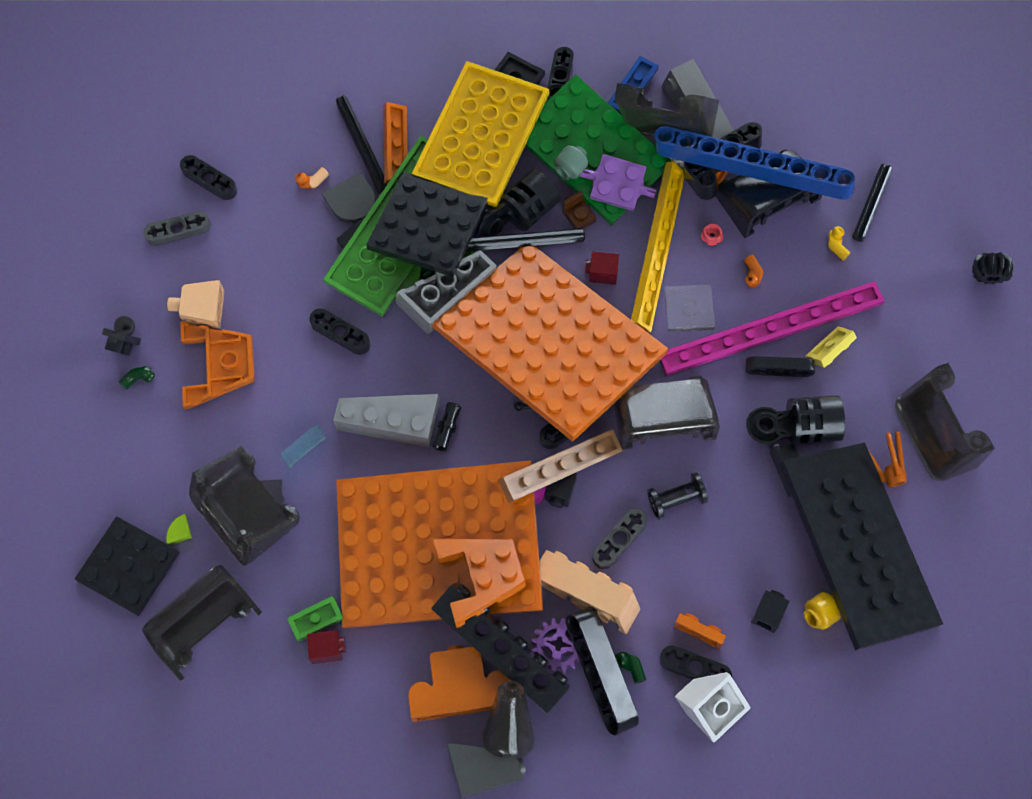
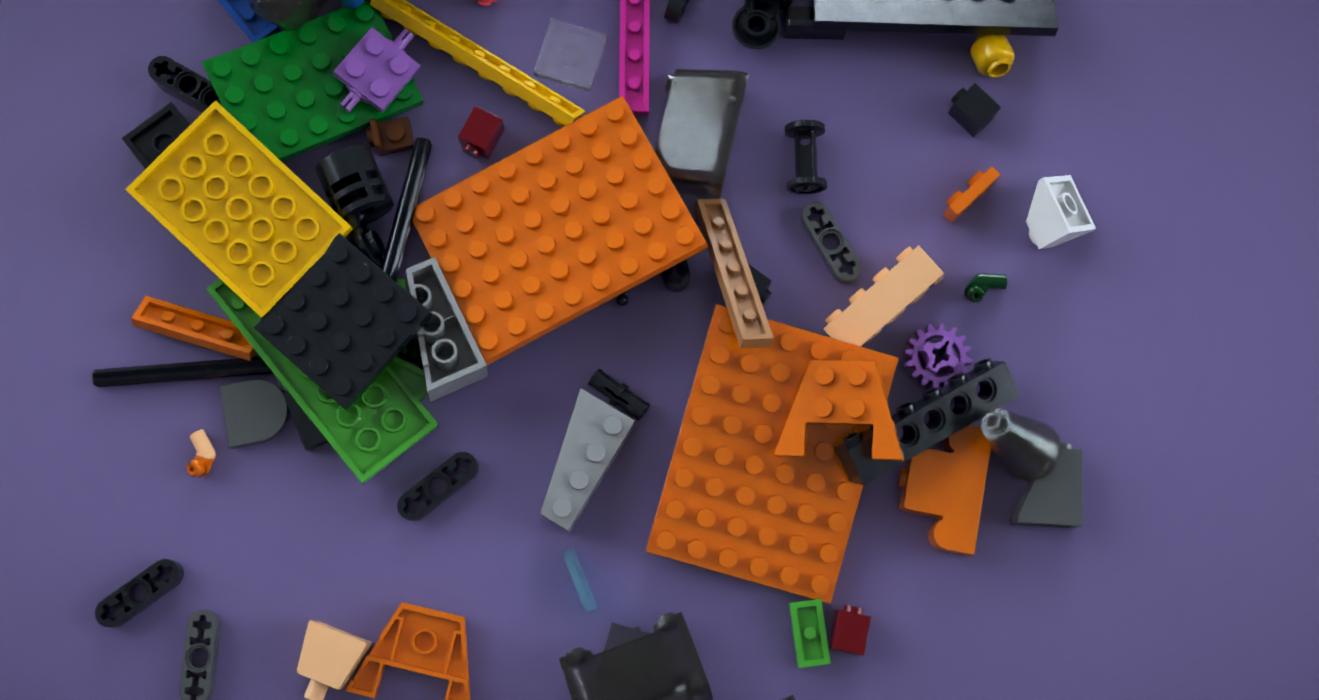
camera: 75 degrees left, 10 degrees up
(571, 162) = (329, 113): sand green head -> none
(602, 671) = (986, 317): beam -> none
(680, 653) = (987, 226): black beam -> none

